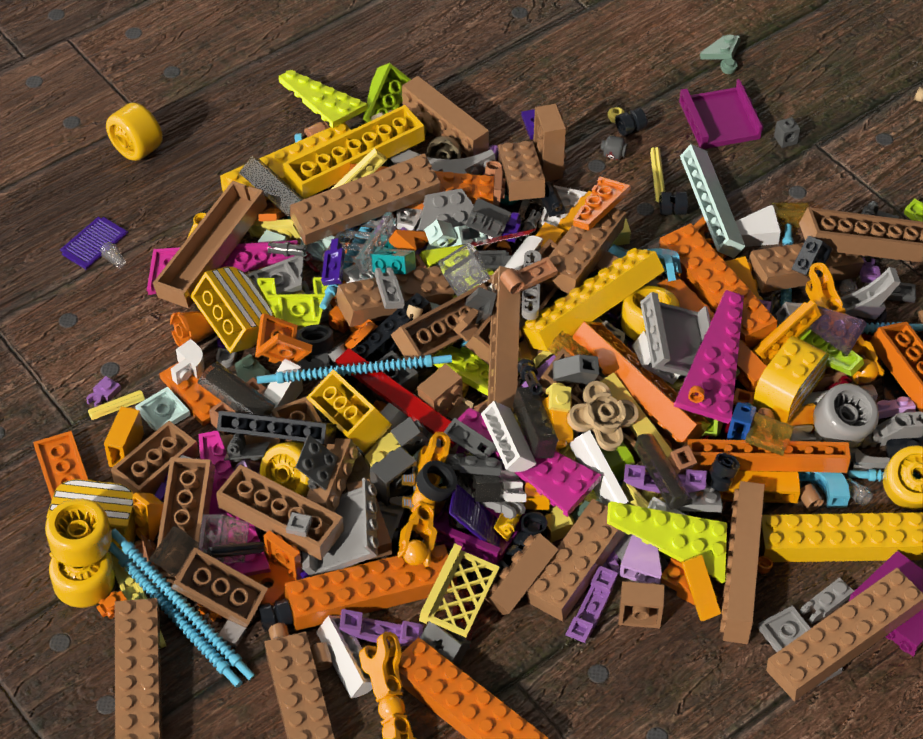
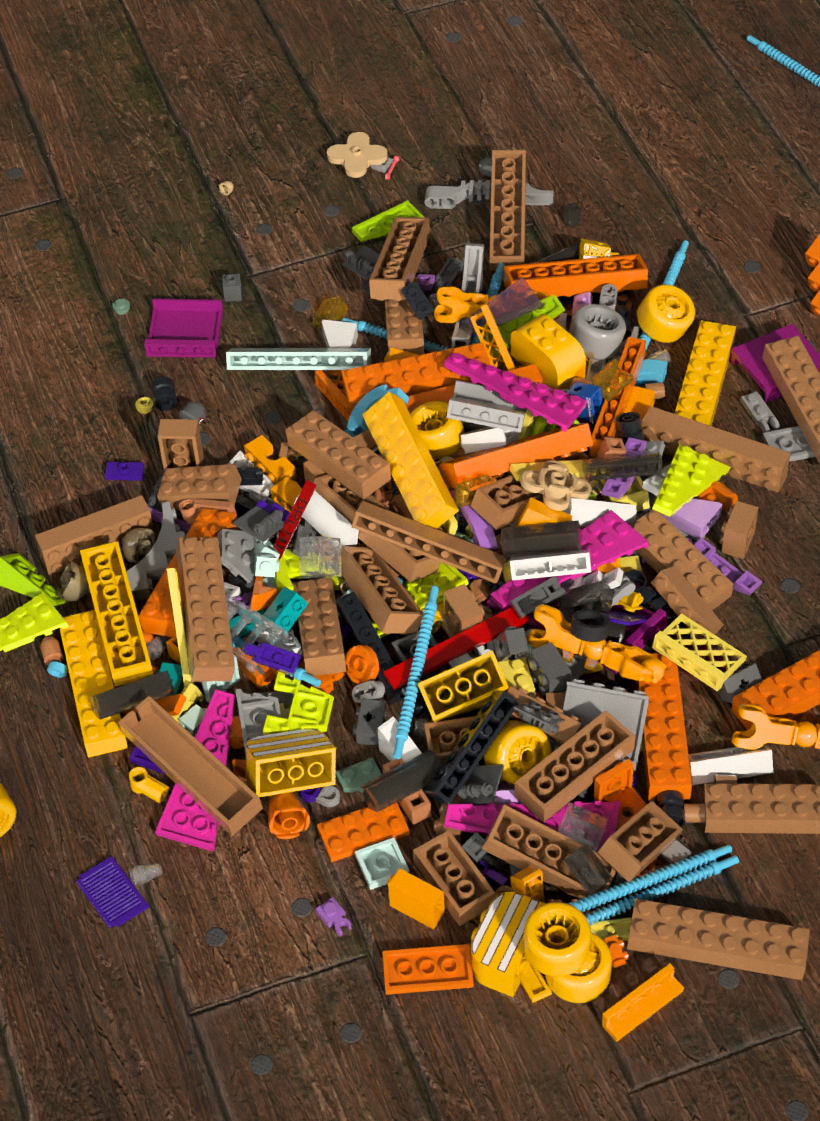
camera: 70 degrees left, 0 degrees up
(61, 636) = (641, 1003): none -> light orange fence
(114, 405) = (357, 906): light yellow axle -> none
(190, 362) = (336, 817): white brick -> none
(236, 549) = (603, 815): black axle -> none
(283, 344) = (353, 733): orange bracket -> none
(287, 249) = (228, 698): dark grey pin -> none
(299, 524) = (607, 745): light grey tile -> none
(318, 336) = (360, 711): black tyre -> none
(370, 629) = (710, 727): medium lavender slope -> none
(389, 289) = (326, 617): light grey hinge -> none
(415, 311) = (365, 604): tan hinge -> none
(465, 328) = (395, 566): medium nougat bracket -> none
(473, 465) = (573, 596): dark grey hinge -> none
(483, 301) = (382, 547): dark grey panel -> none
(528, 276) = (376, 493): nougat plate -> none
(529, 374) = (483, 528): black pin -> none
(532, 291) = (407, 505): light grey beam -> none
(559, 397) = (533, 503): light yellow bracket -> none
(576, 369) = (509, 482): dark grey slope -> none
(600, 202) = (301, 419): orange wing -> none
(657, 172) = (237, 394): light yellow axle -> none
(673, 203) = (284, 390): black wheel -> none
(696, 398) = (564, 408): orange hinge -> none
(701, 587) = (734, 483): light orange tile -> none
(722, 48) = (98, 303): sand green wing -> none

